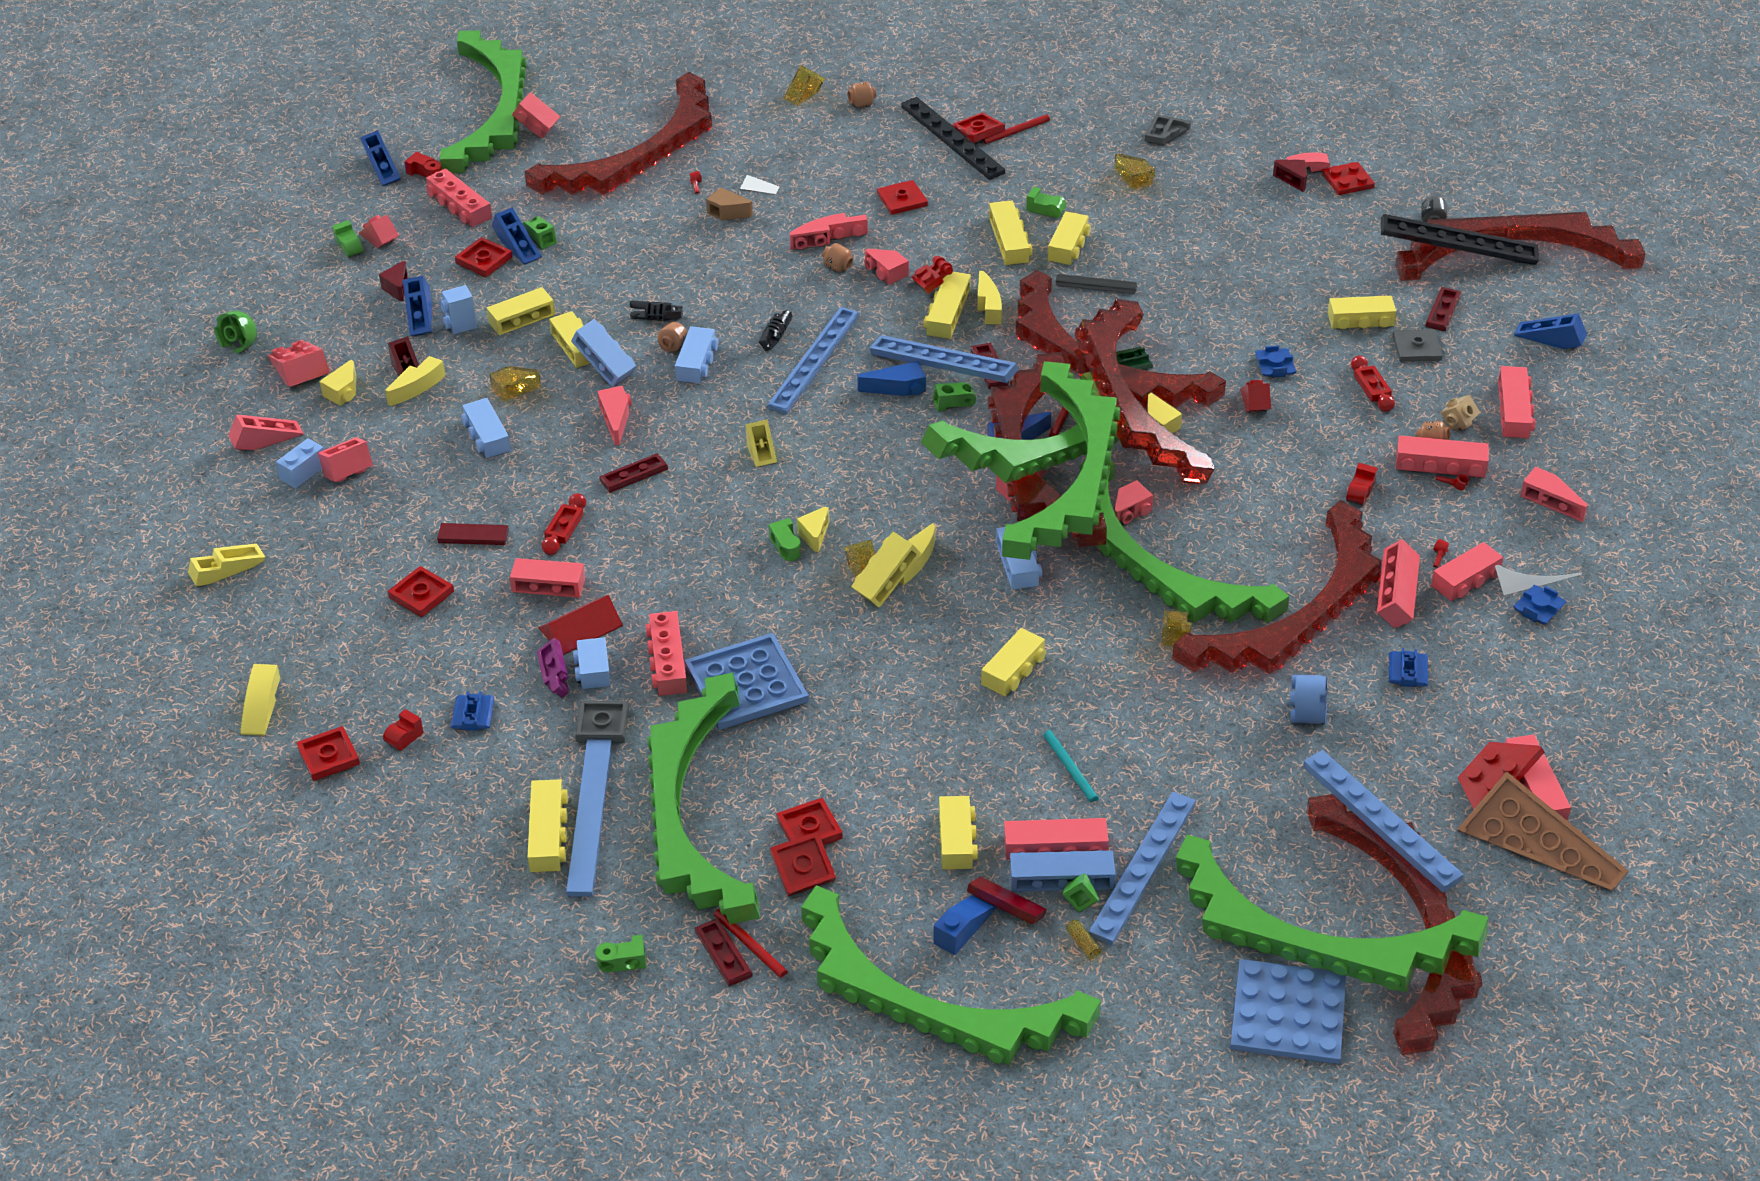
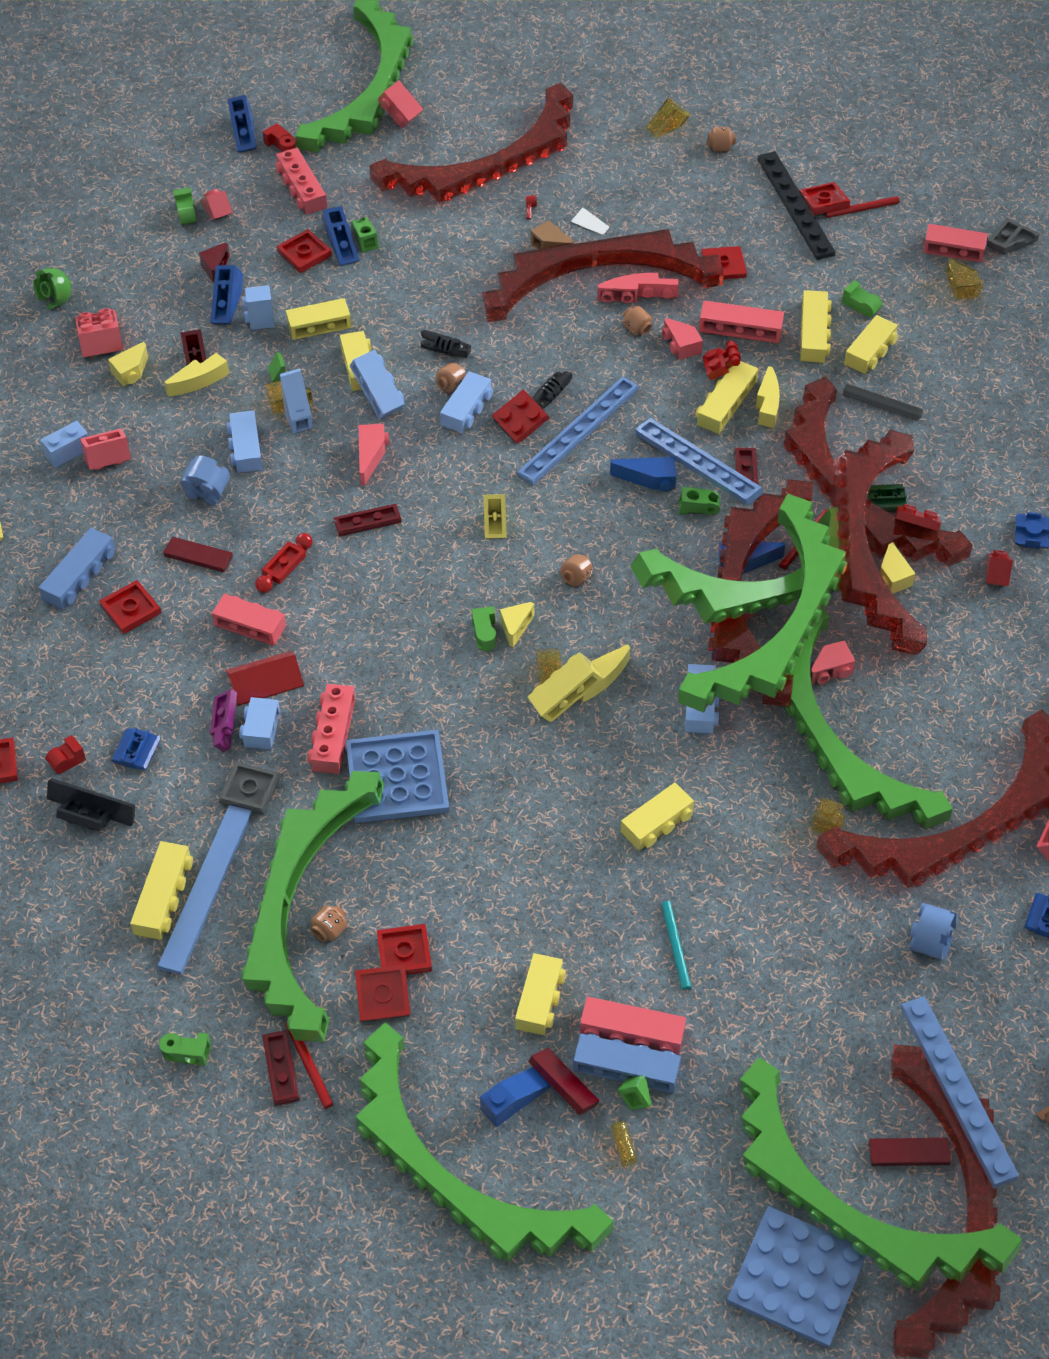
camera: 15 degrees right, 10 degrees up
(259, 432) = (39, 401): coral slope -> none
(354, 568) = (77, 568): none -> medium blue brick
(443, 769) = (88, 807): none -> black bracket
(458, 465) = (204, 479): none -> medium blue brick
(494, 359) = (276, 367): none -> bright green slope
(527, 380) = (295, 401): none -> light blue slope
(726, 817) = (328, 923): none -> nougat head
(754, 357) = (520, 416): none -> red plate
(828, 195) = (642, 249): none -> clear red arch
(857, 474) = (576, 570): none -> nougat head
(939, 240) = (742, 319): none -> coral brick
(1114, 141) = (955, 243): none -> coral brick
(1141, 868) = (707, 1078): medium blue plate -> none
(1175, 367) = (910, 514): none -> red plate
(1353, 886) = (909, 1151): none -> dark red tile

